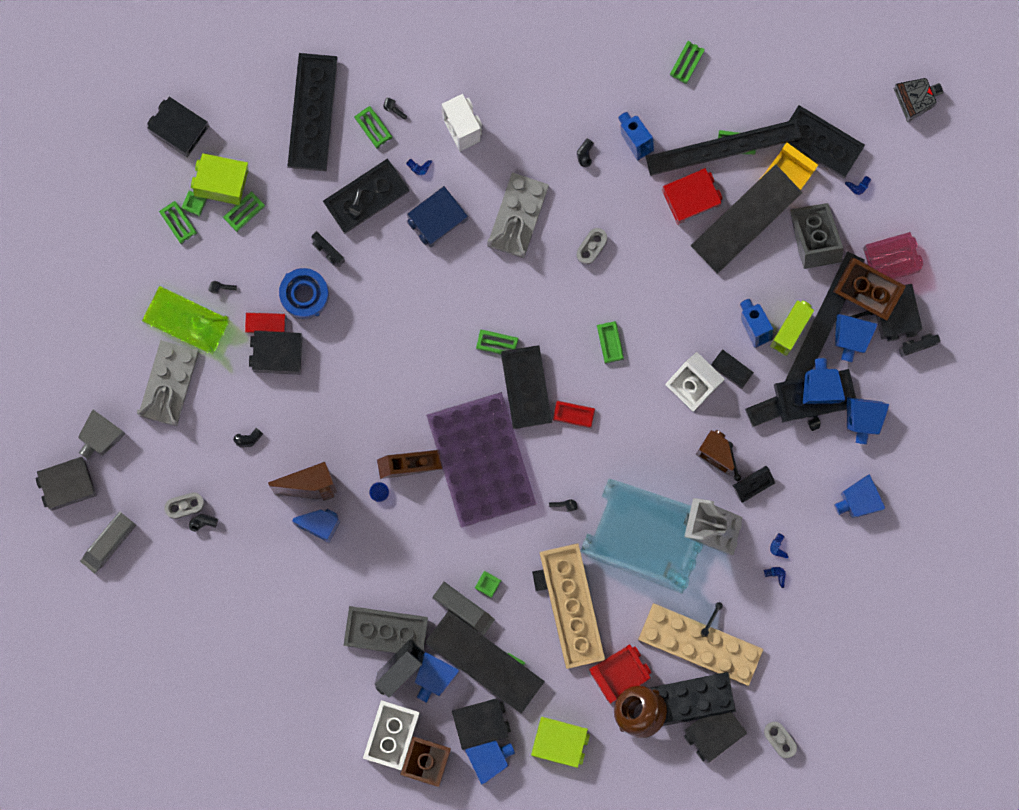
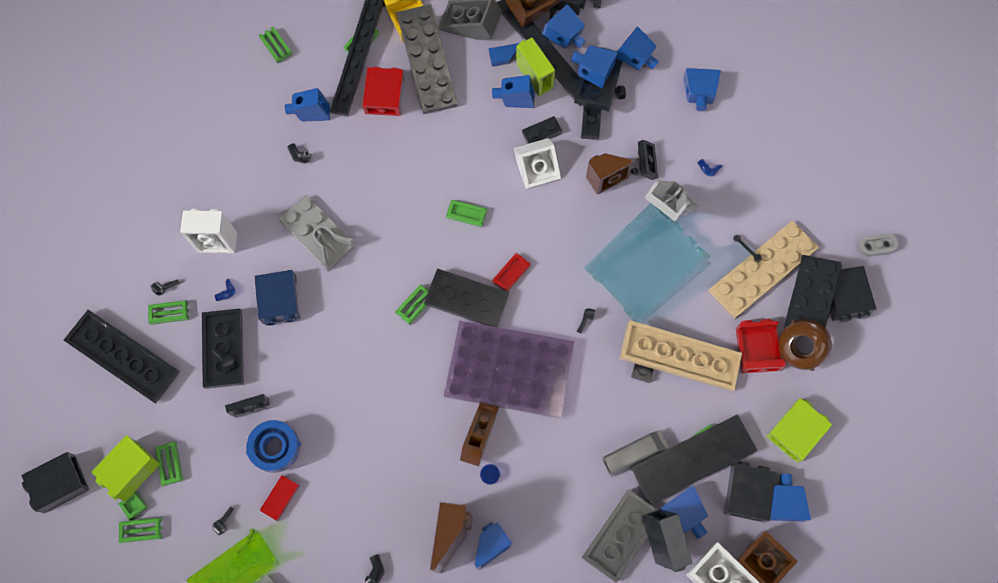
camera: 55 degrees left, 10 degrees down
(276, 352) = (311, 501): black brick -> none
(487, 584) = (623, 420): bright green tile -> none
(591, 246) = (379, 187): light grey plate -> none
(776, 571) = (728, 182): clear blue animal -> none
(795, 288) = (502, 54): none -> blue tile

